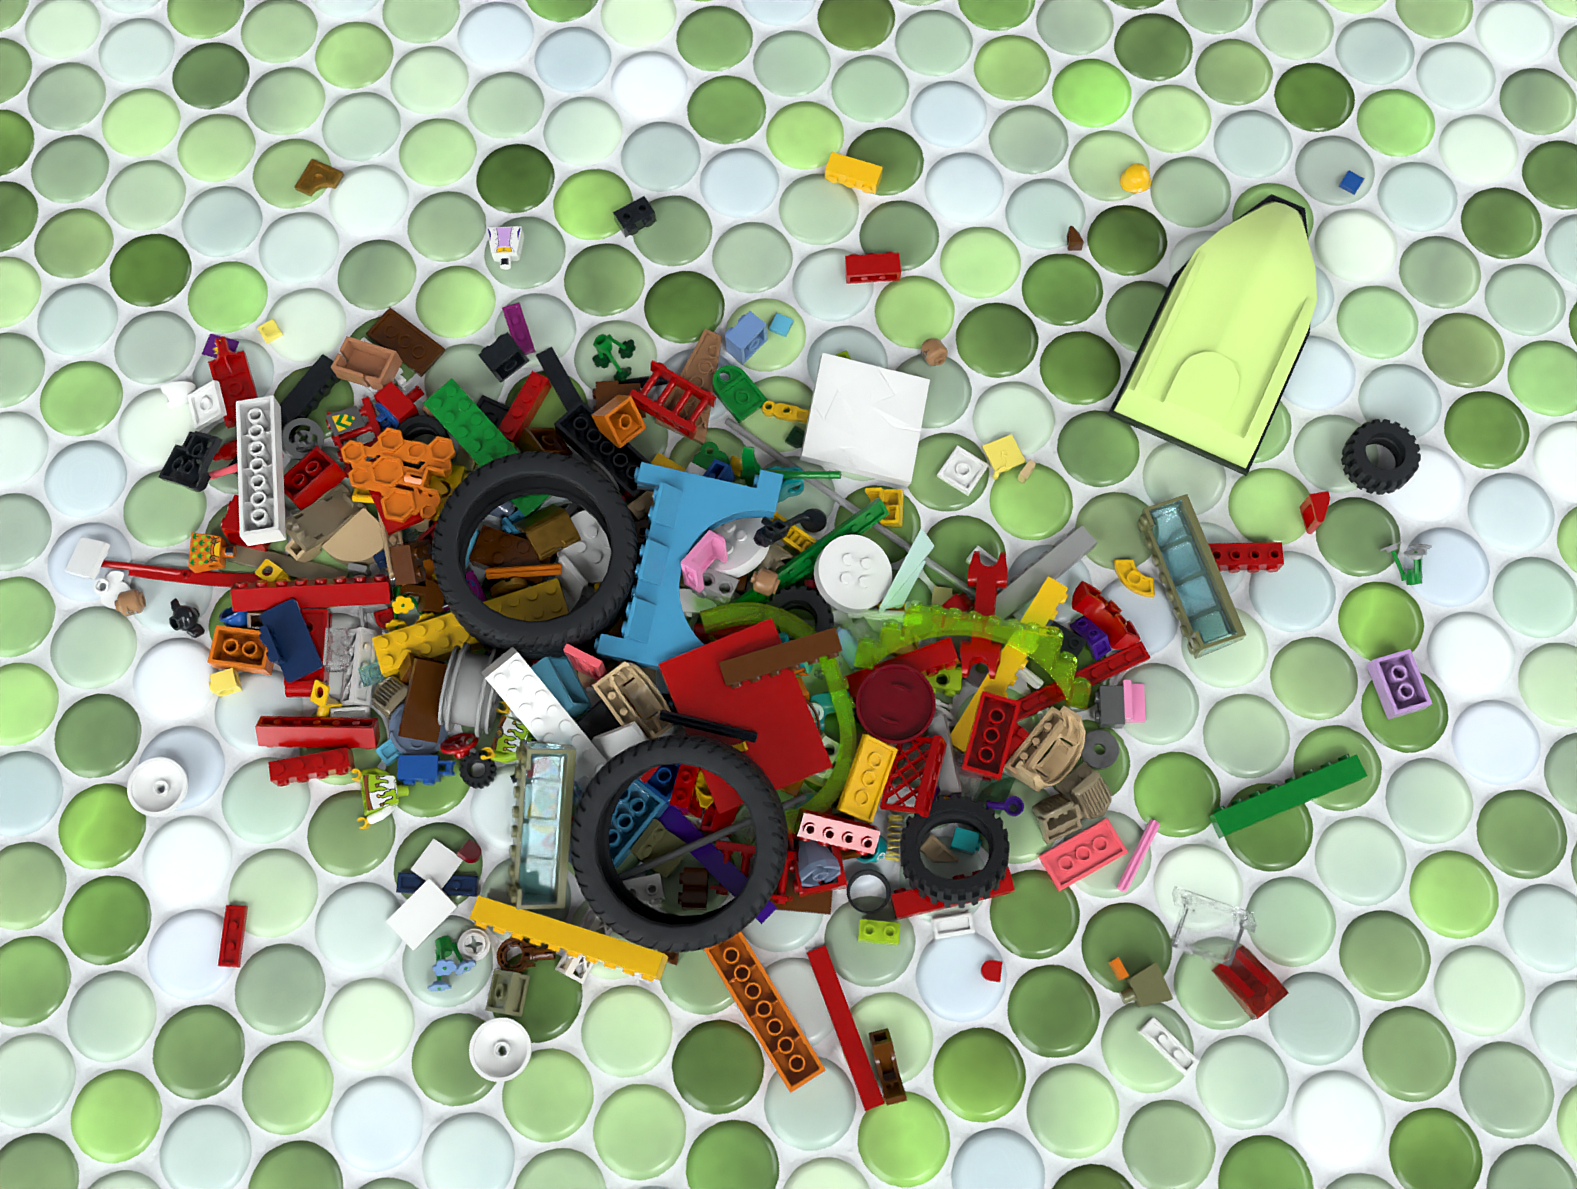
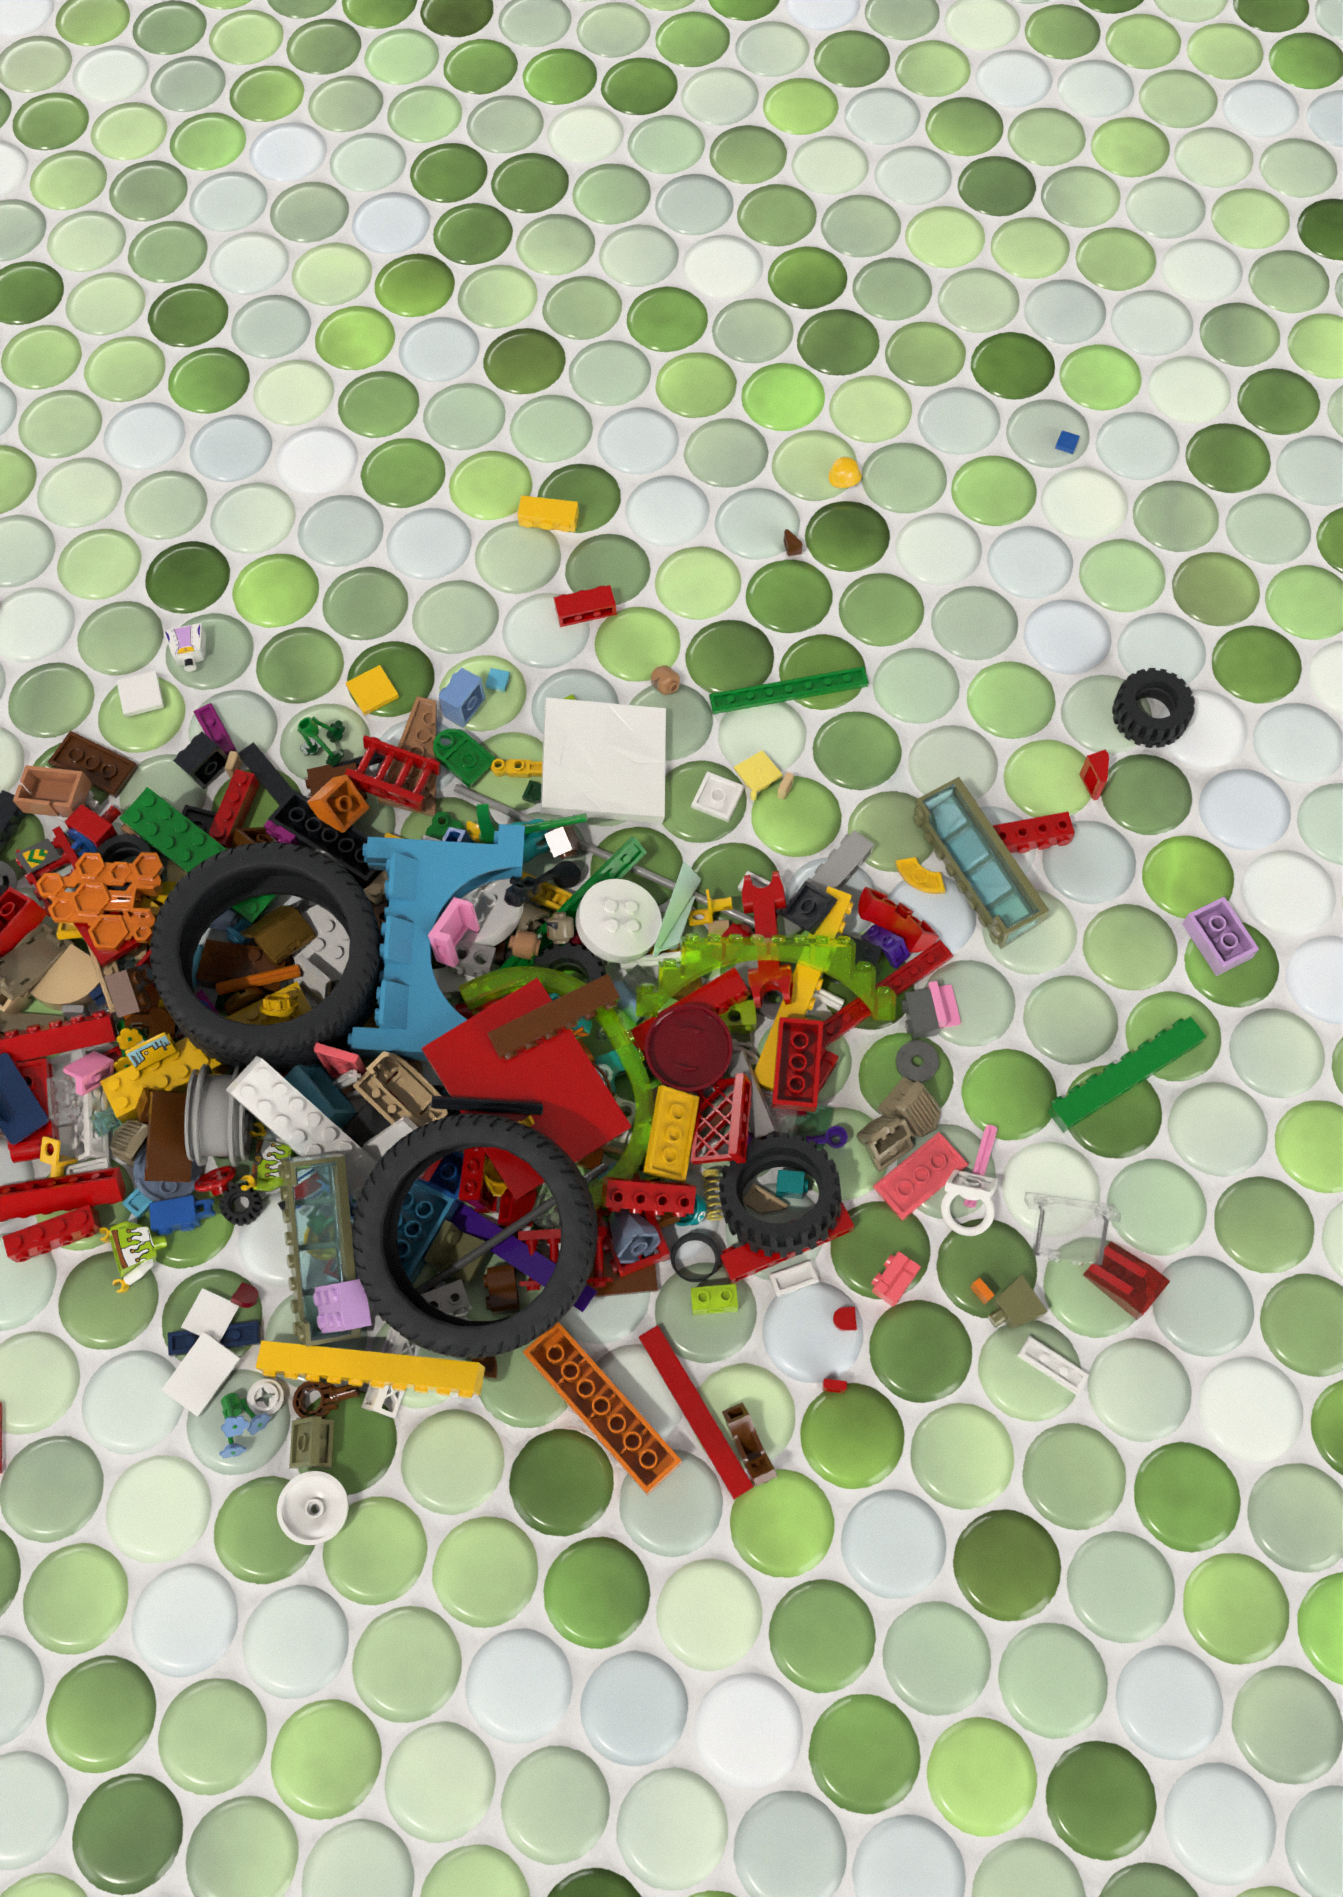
camera: 10 degrees left, 5 degrees down
(364, 627) = (90, 1071): none -> bright pink panel
(420, 620) = (151, 1051): none -> yellow panel
(457, 283) = (140, 694): none -> white tile
(530, 364) = (233, 762): none -> tan tile
(537, 605) = (278, 1008): none -> yellow piece
(552, 881) = (342, 1306): none -> lavender brick
(566, 442) = (280, 833): none -> magenta plate
(588, 677) = (347, 1079): none -> white axle
(635, 216) = (322, 594): black brick -> none
(665, 315) = (372, 690): none -> yellow tile
(799, 571) = (560, 928): none -> dark tan head
(815, 492) = (563, 842): none -> brick
(893, 502) = (650, 840): yellow slope -> none
(941, 573) = (713, 906): none -> yellow bracket
(971, 1028) = (836, 1386): none -> red tile
(1027, 592) = (809, 907): none -> black tile
(1043, 943) = (895, 1279): none -> coral brick
(1045, 380) = (788, 690): none -> green tile
(1060, 758) = (878, 1078): tan piece -> none
(1126, 875) = (970, 1187): none -> white tile
(1226, 338) = (968, 617): yellowish green piece -> none
(1413, 576) = (1213, 822): plant -> none

